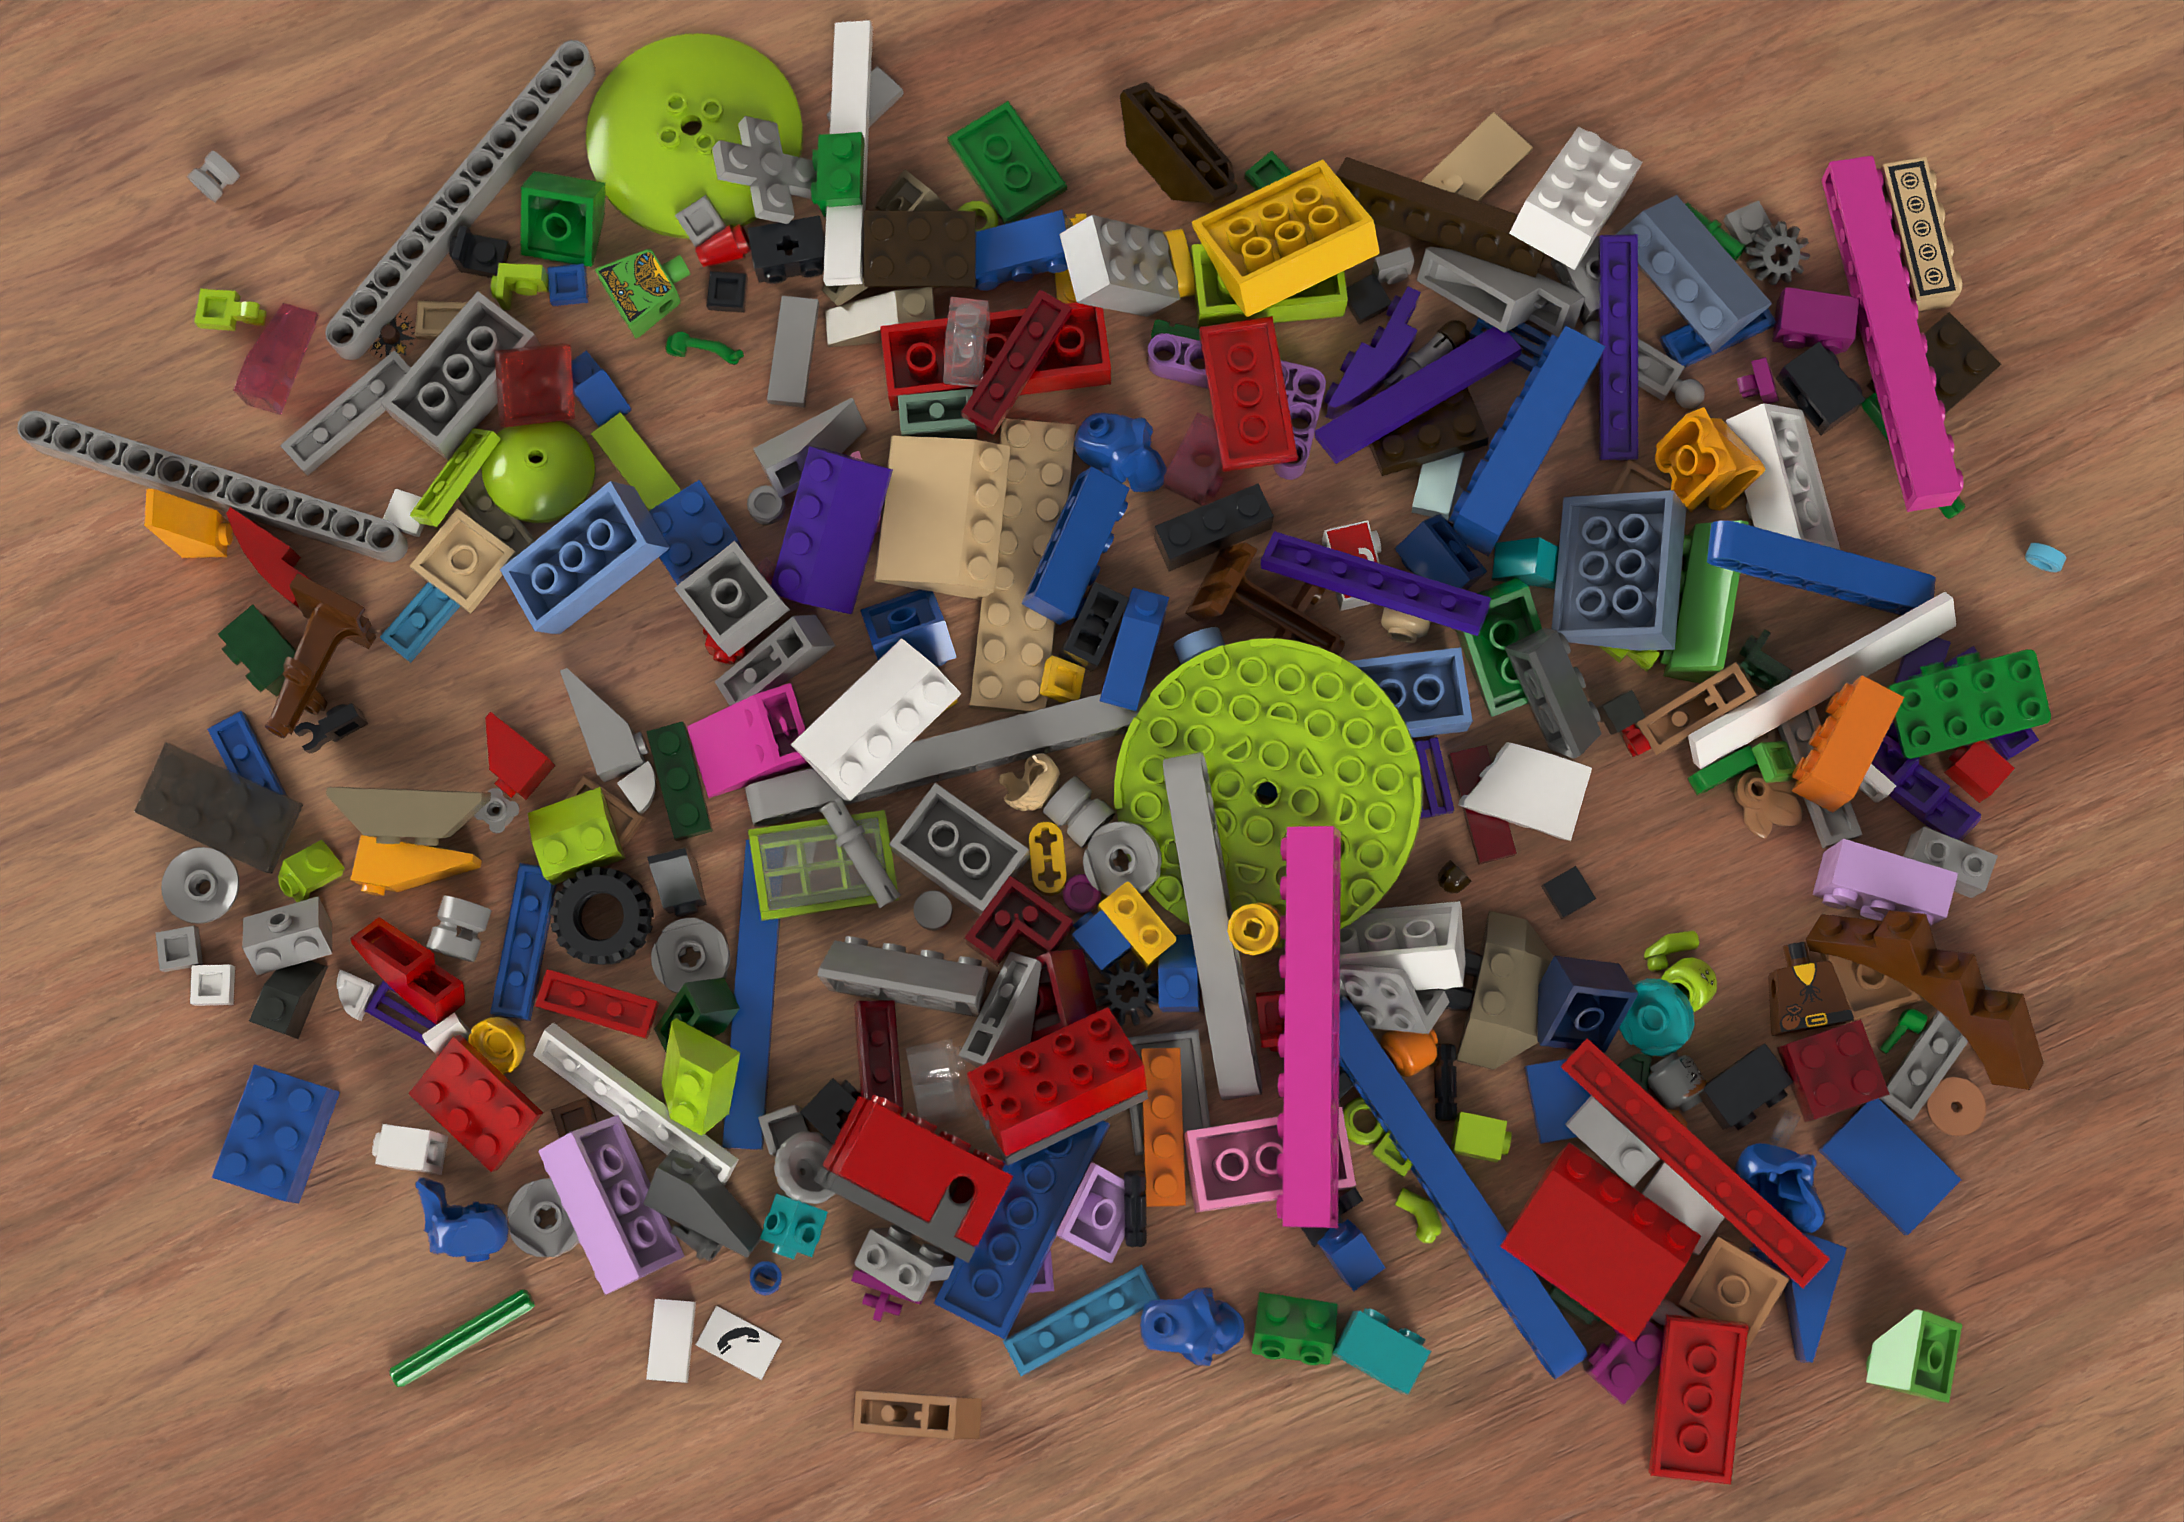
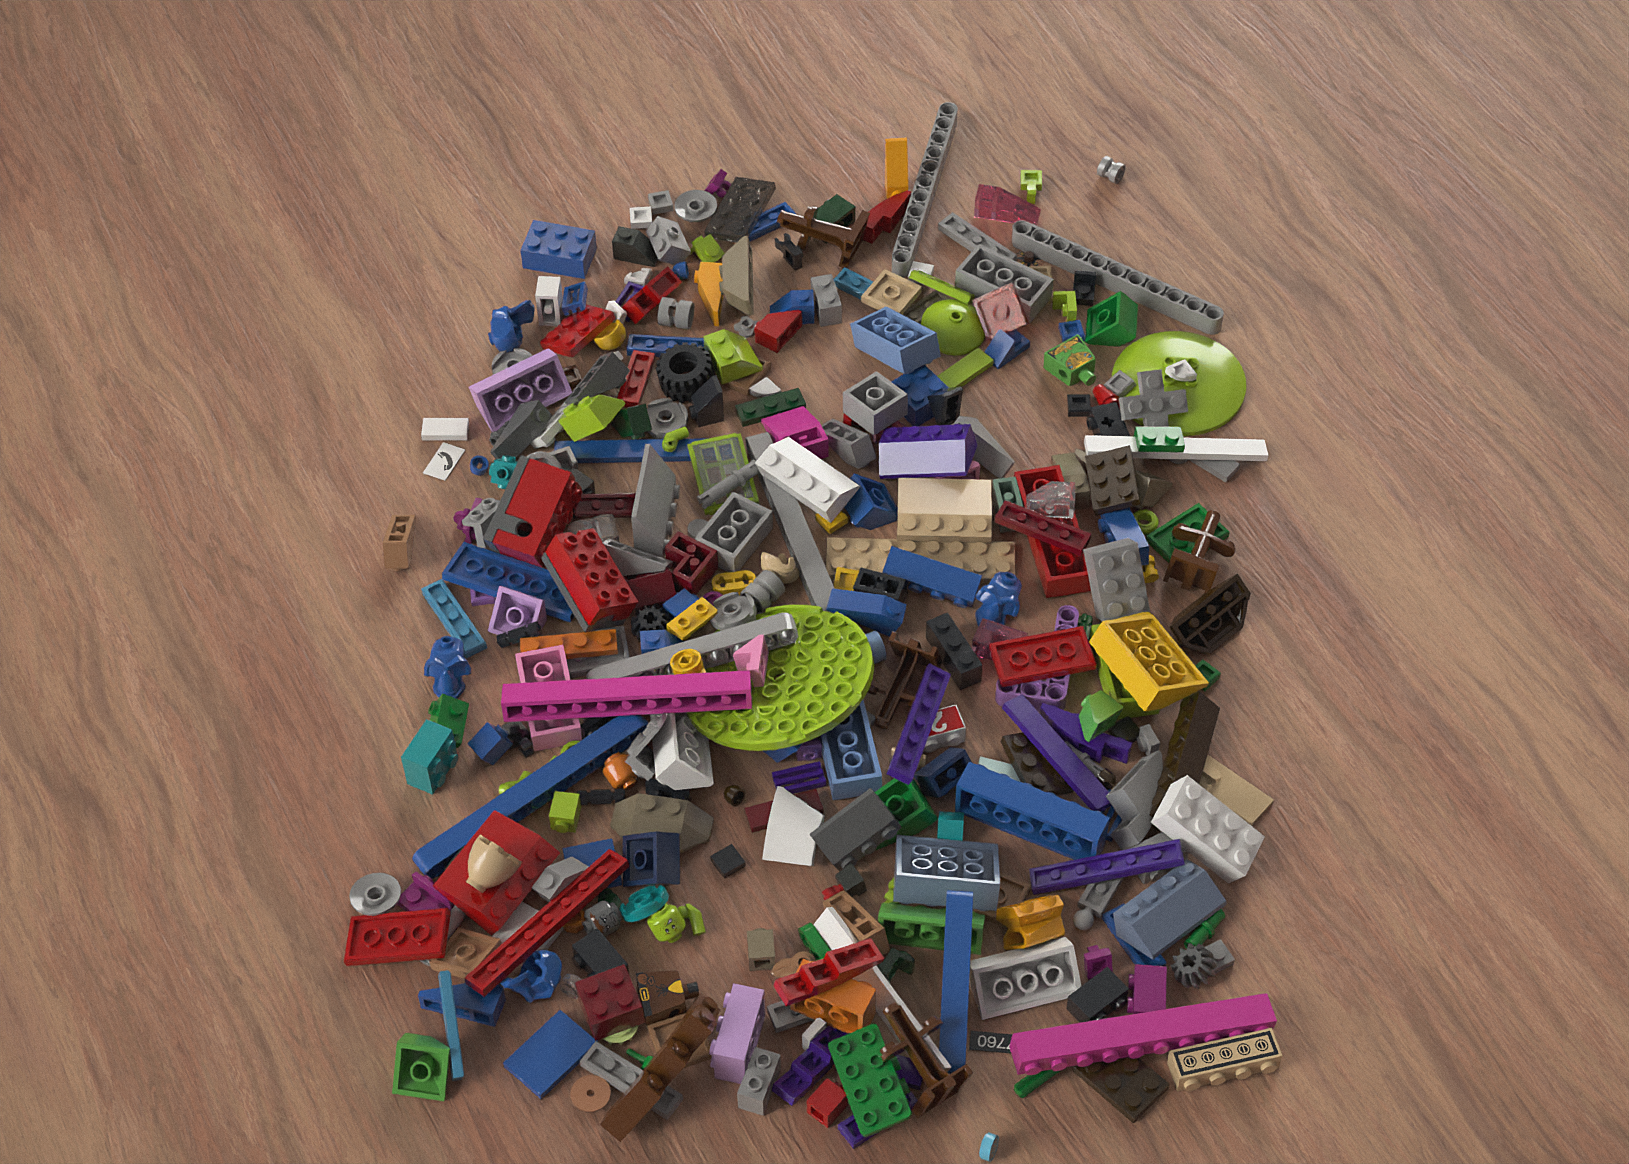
camera: 85 degrees right, 25 degrees down
(148, 847) = (717, 183): none -> magenta tile
(351, 918) = (681, 270): none -> blue hinge
(429, 1106) = (579, 297): none -> blue tile
(458, 671) = (826, 300): none -> light grey brick
(461, 1338) = (448, 339): green axle -> none
(467, 729) = (796, 300): none -> blue slope
(609, 737) = (797, 367): light grey slope -> none
(619, 1064) = (604, 375): none -> dark grey slope
(678, 344) = (1040, 384): green piece -> none
(698, 119) = (1181, 371): none -> white tile
(728, 490) = (946, 405): none -> black slope
(744, 945) = (671, 438): none -> lime arm
(793, 351) = (1044, 439): light grey tile -> none
(1085, 155) = (1193, 568): none -> reddish brown piece
(1238, 823) = (753, 657): none -> bright pink slope
(1370, 324) = (1098, 714): none -> bright green slope
(1625, 1243) = (489, 864): none -> tan piece
(1640, 1443) = (373, 886): none -> light grey dish
(1729, 849) = (761, 949): none -> dark tan brick
(1844, 737) = (829, 972): none -> red slope
(1869, 1309) = (451, 1025): none -> dark azure tile
(1874, 529) = (990, 1041): none -> black sticker
(1975, 612) = (939, 1083): none -> reddish brown piece

